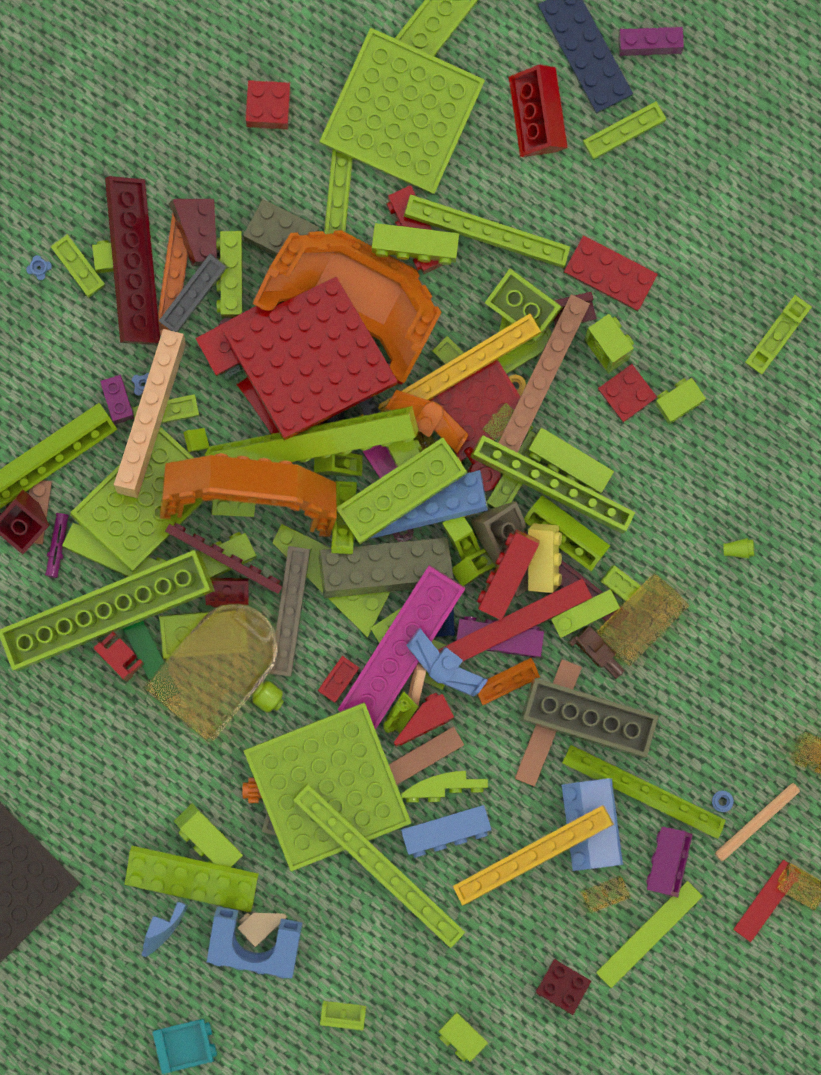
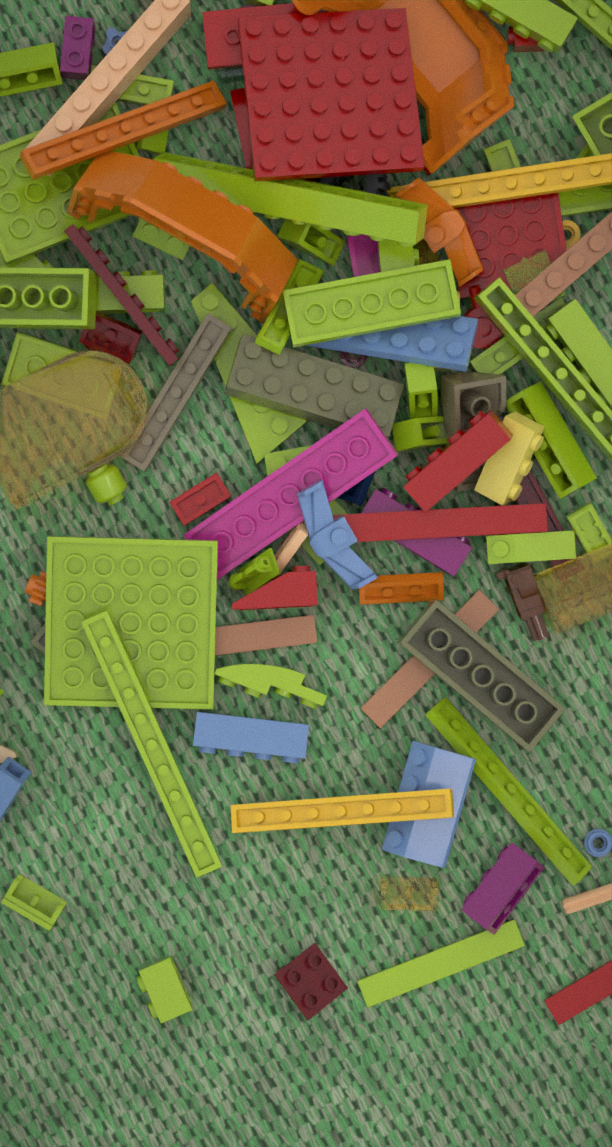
camera: 30 degrees right, 5 degrees up
(175, 443) = (122, 130): none -> orange plate

